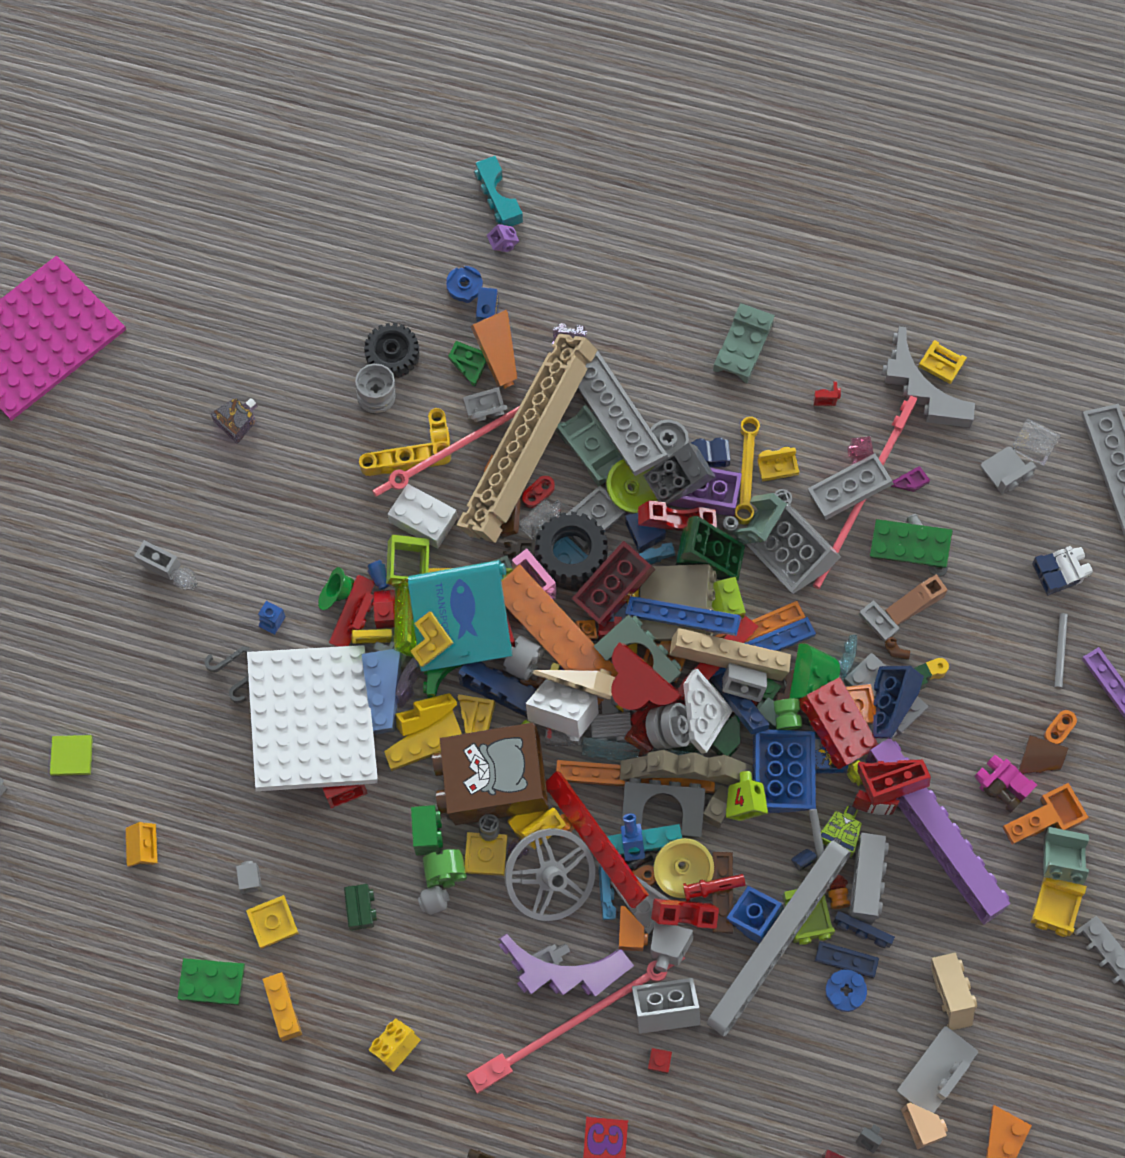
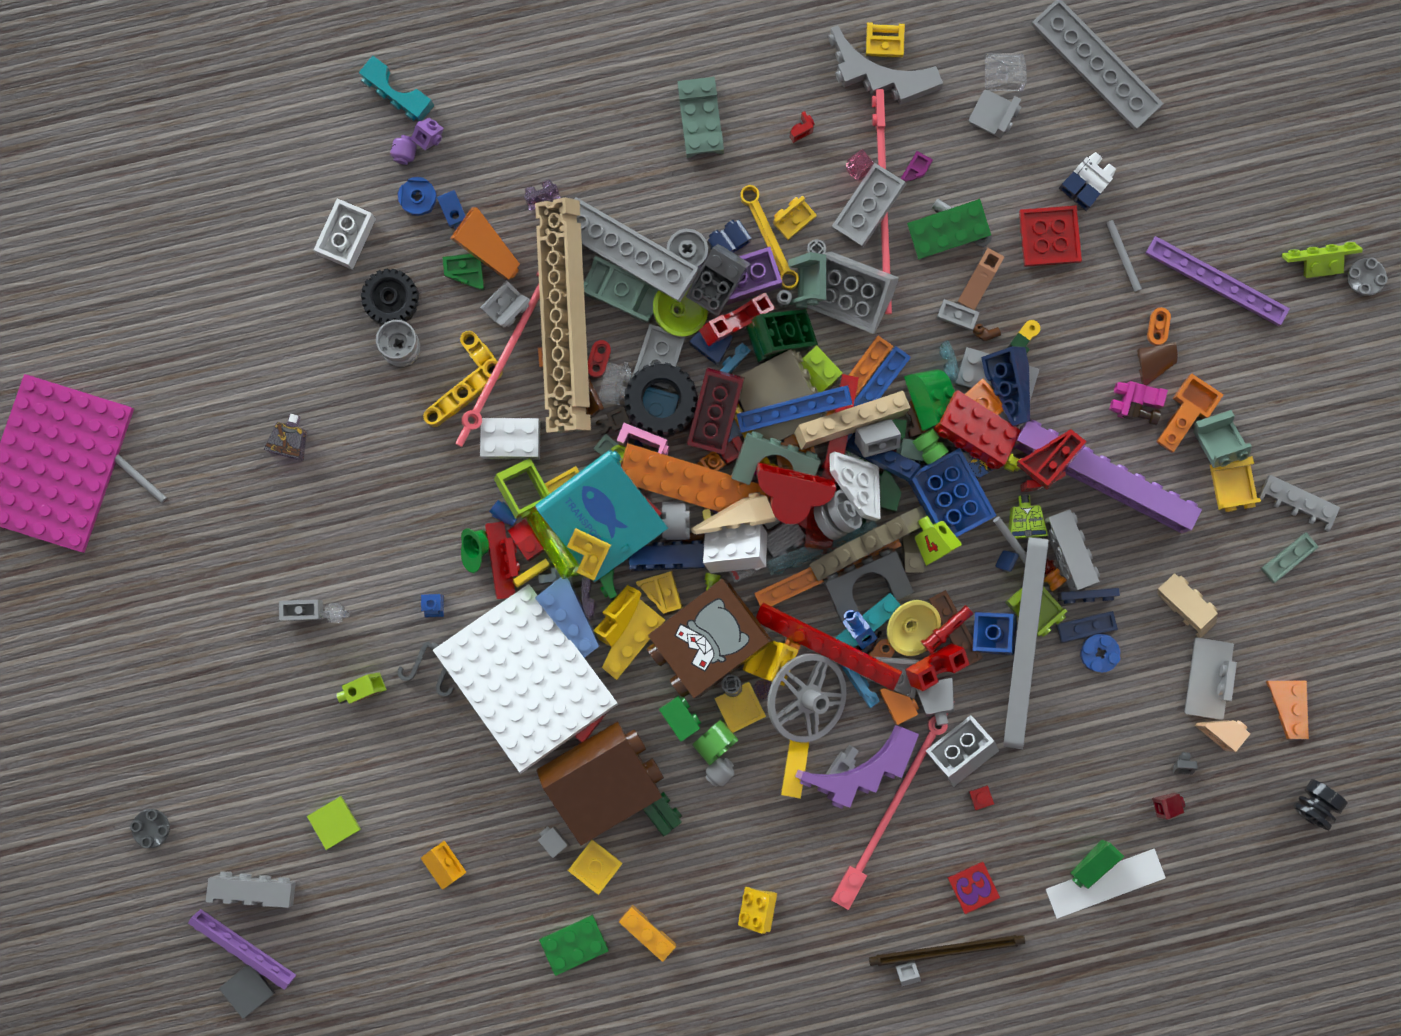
camera: 30 degrees left, 15 degrees up
(94, 386) = (140, 479): none -> light grey bar
(167, 653) = (361, 688): none -> lime torso
(322, 843) = (601, 782): none -> reddish brown brick
(385, 280) = (344, 234): none -> white brick
(475, 241) = (403, 150): none -> medium lavender head
(512, 925) = (795, 761): none -> yellow slope
(1001, 598) = (1050, 236): none -> red plate
(1075, 1002) = (1289, 557): none -> sand green tile

